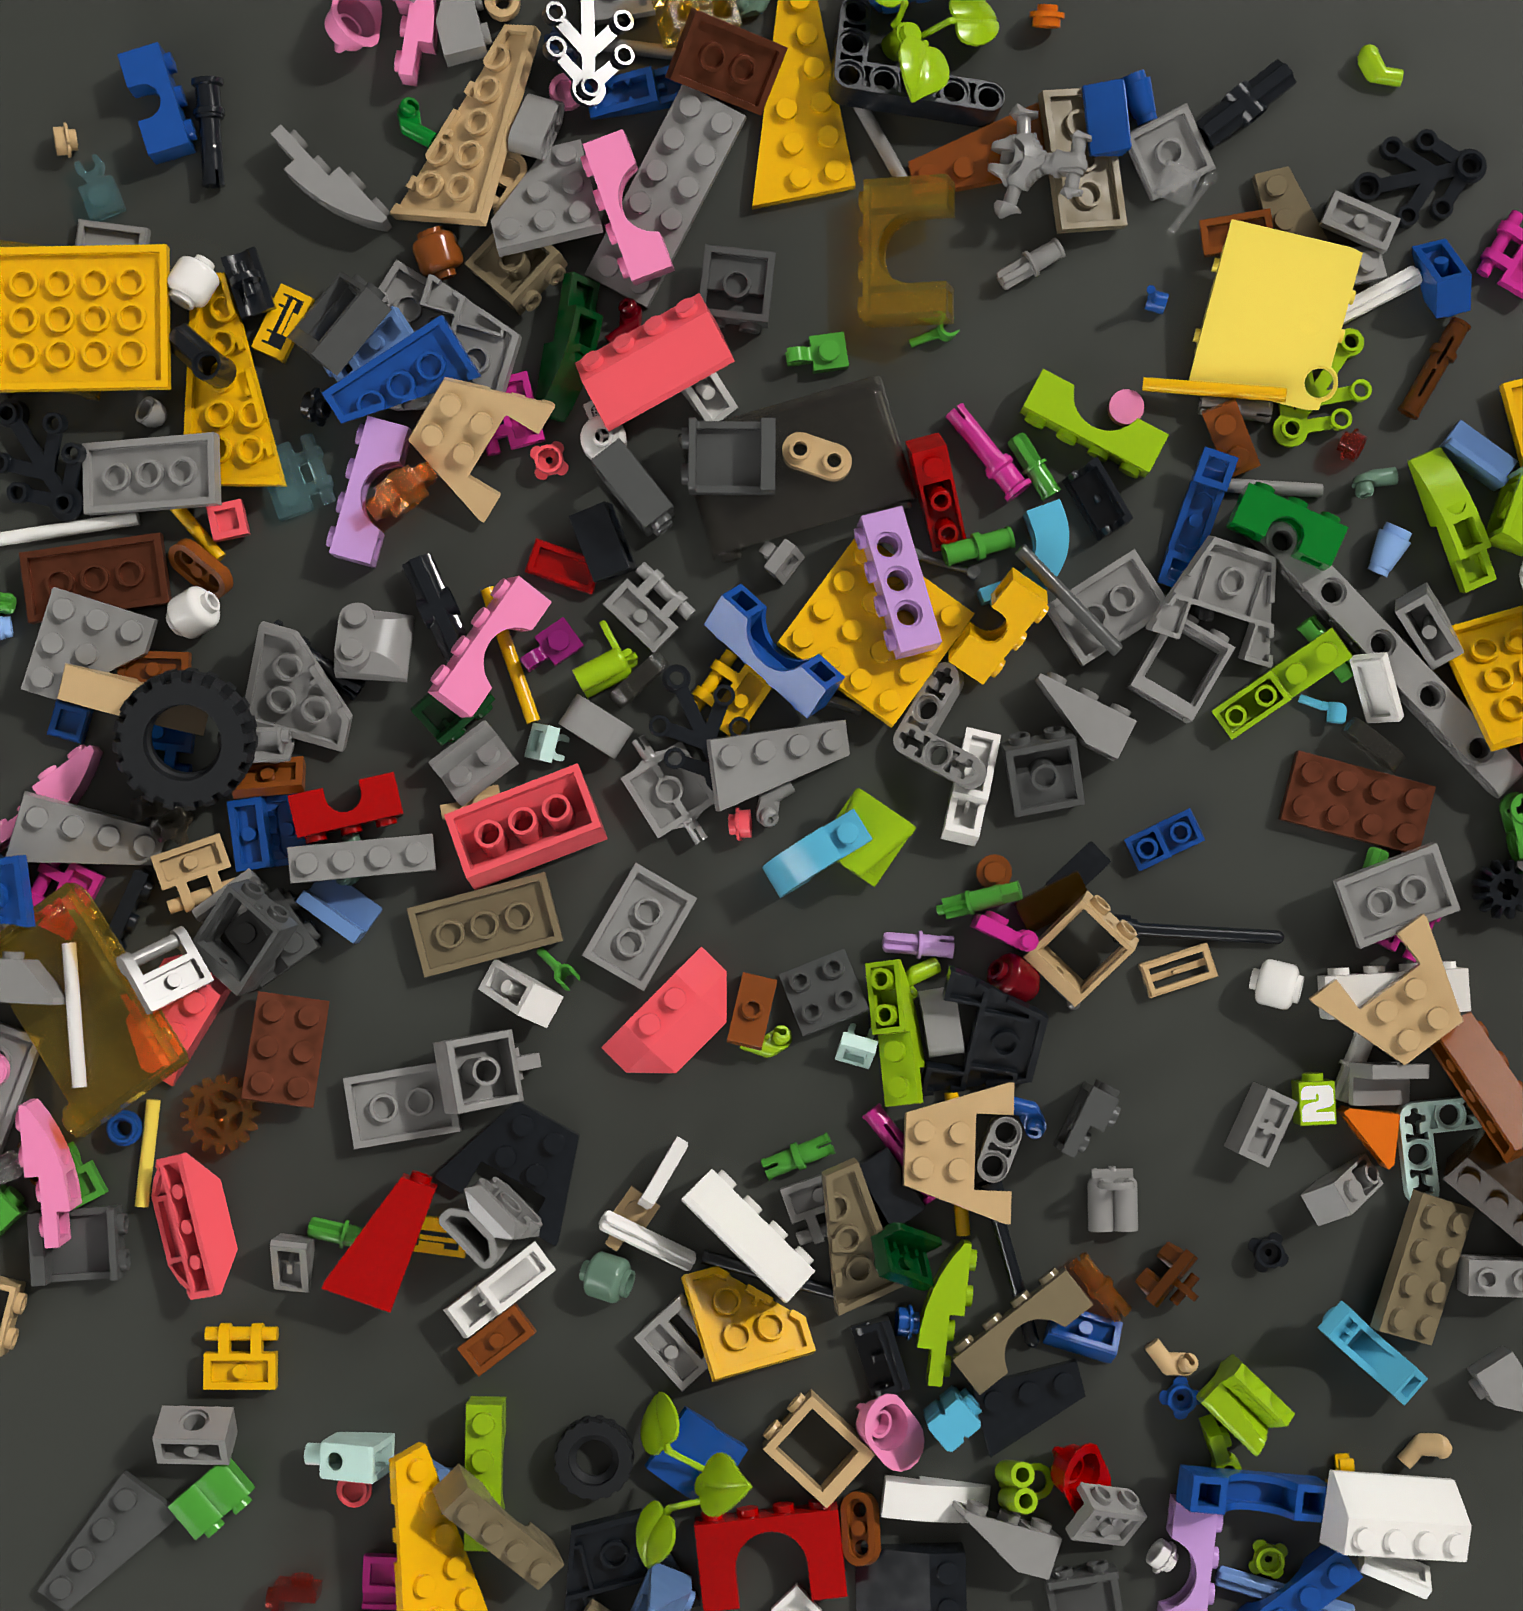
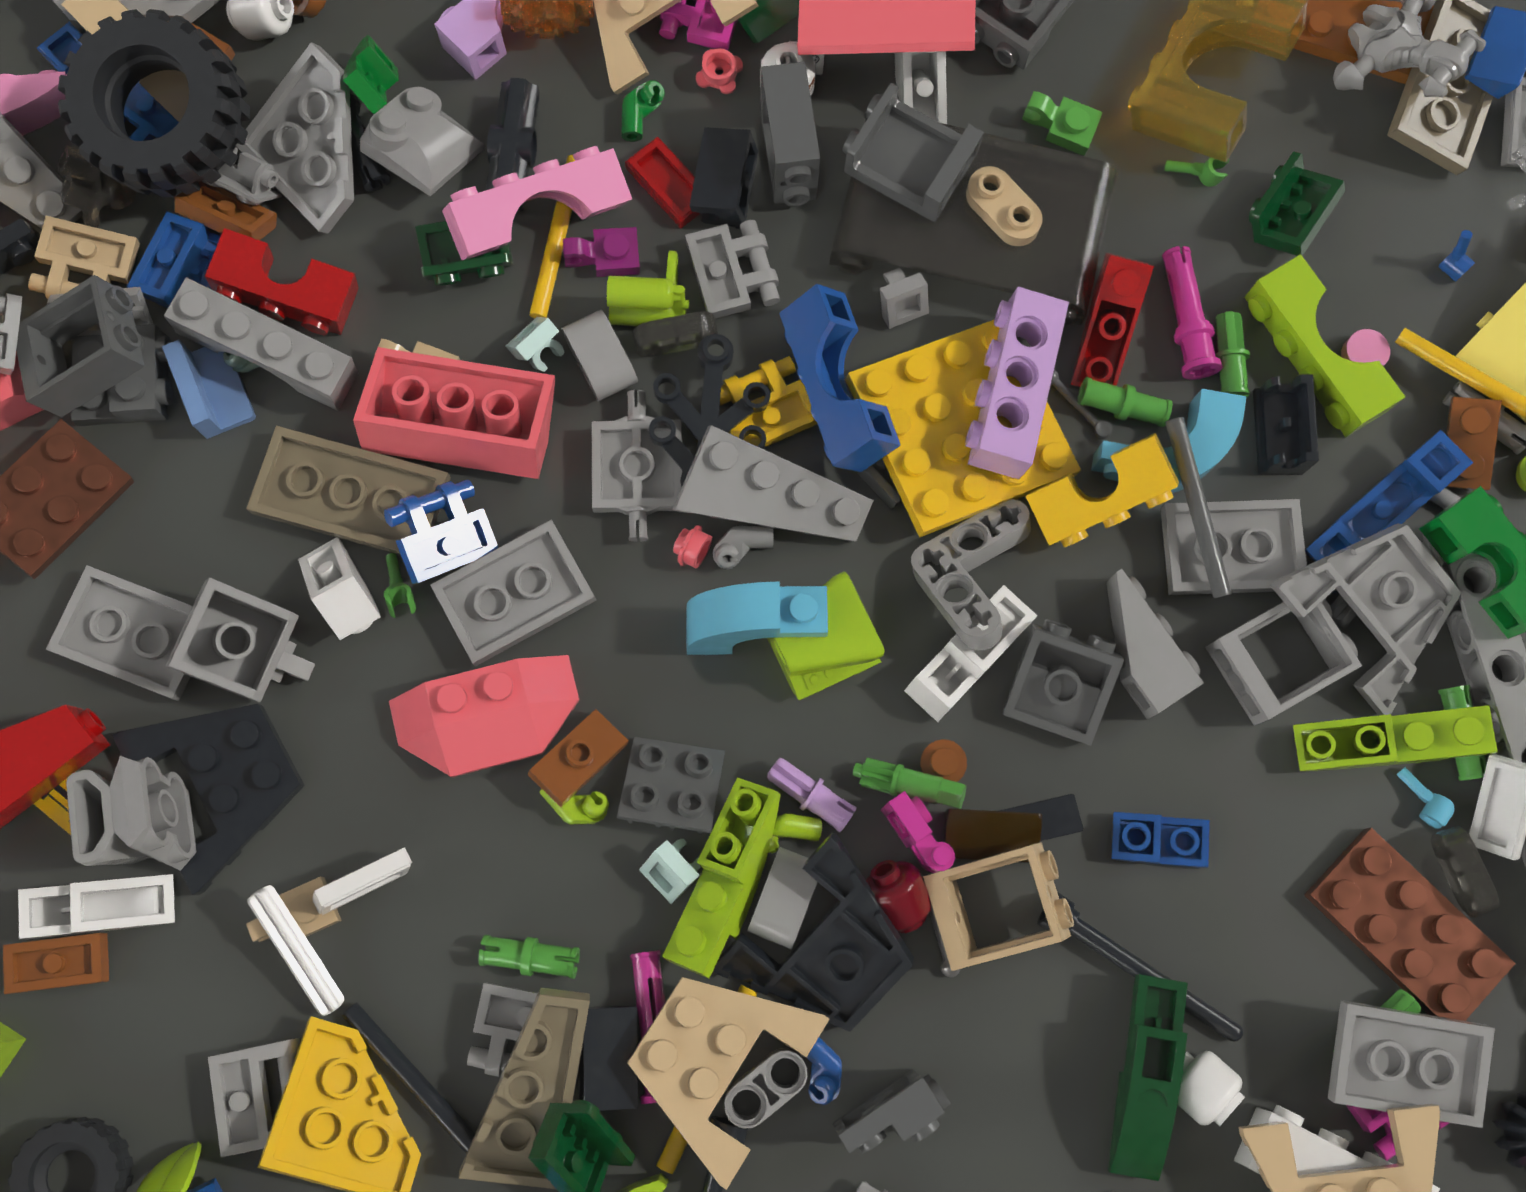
camera: 30 degrees right, 10 degrees down
(306, 617) = (370, 74): none -> green slope
(473, 762) = (446, 315): light grey bracket -> none
(507, 521) = (639, 105): none -> green arm
(577, 921) = (445, 545): none -> plate
(607, 1277) = (224, 966): sand green head -> none
(748, 1235) = (411, 1014): white slope -> none
(1019, 327) = (1294, 207): none -> dark green bracket
(1030, 264) = (1342, 154): light grey axle -> none
(1148, 978) = (1054, 992): tan tile -> none
(1237, 999) = (1150, 1078): none -> dark green slope

